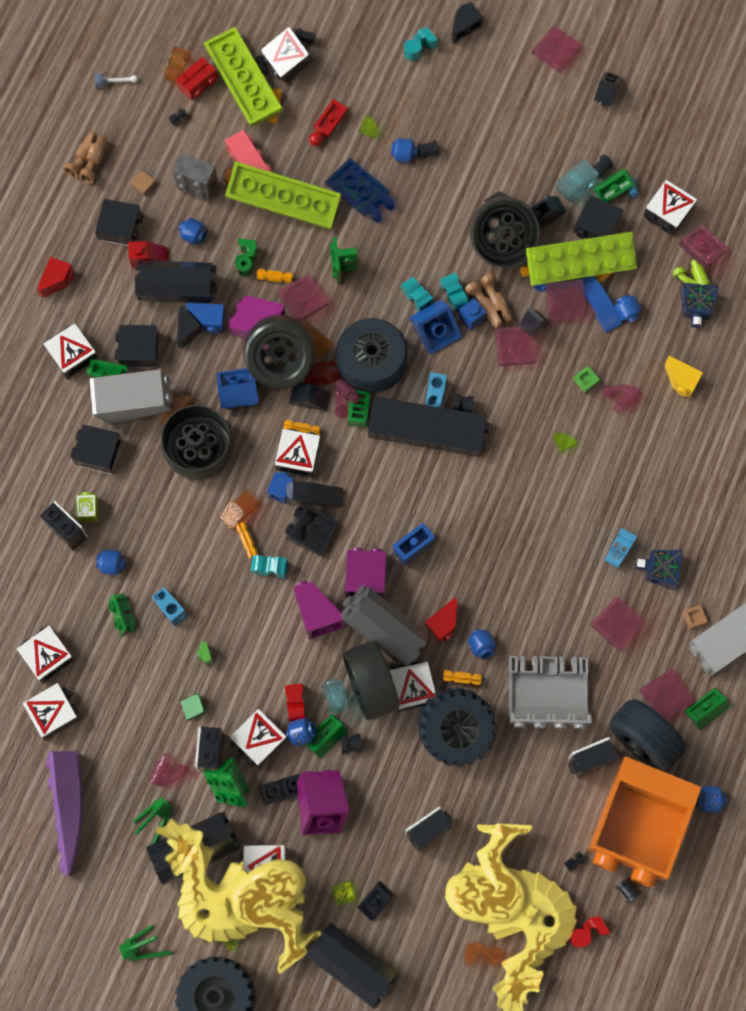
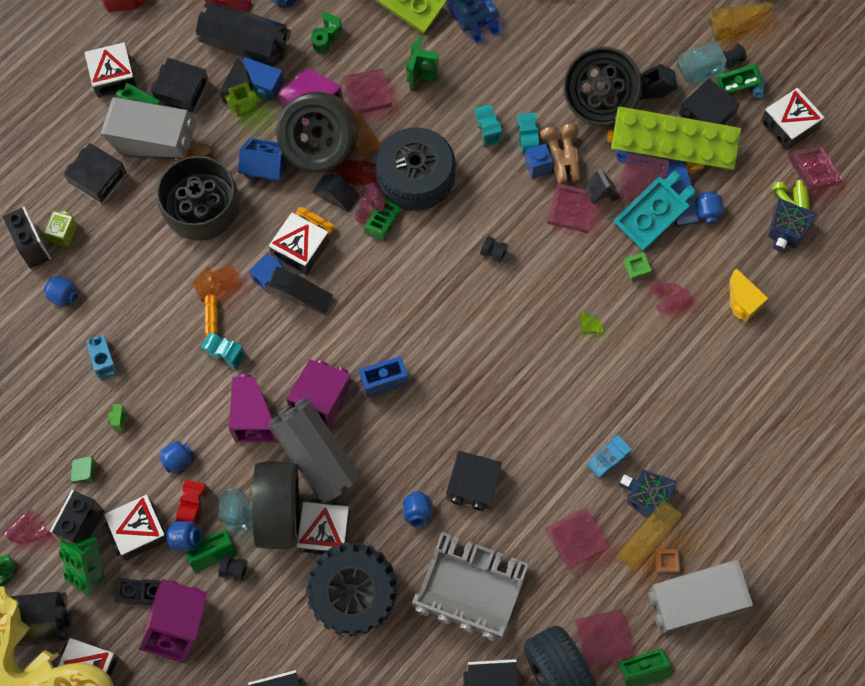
camera: 20 degrees right, 5 degrees down
(121, 620) = (50, 339): green hinge -> none
(198, 342) = (241, 99): none -> clear neon green brick
(267, 669) = (176, 457): none -> blue head
(276, 276) = (348, 61): light orange axle -> none
(311, 529) = (281, 326): black plate -> none
(428, 426) = (448, 260): black brick -> none
(435, 326) = (495, 162): blue slope -> none
(435, 389) = (470, 226): dark azure leg -> none
(443, 622) = (385, 470): red slope -> none
(462, 678) = (382, 539): light orange axle -> none
(519, 605) = (473, 481): none -> black piece
(584, 327) = (654, 211): none -> teal tile
(590, 135) = (733, 21): none -> clear yellow slope
(675, 602) = (649, 535): none -> clear yellow slope

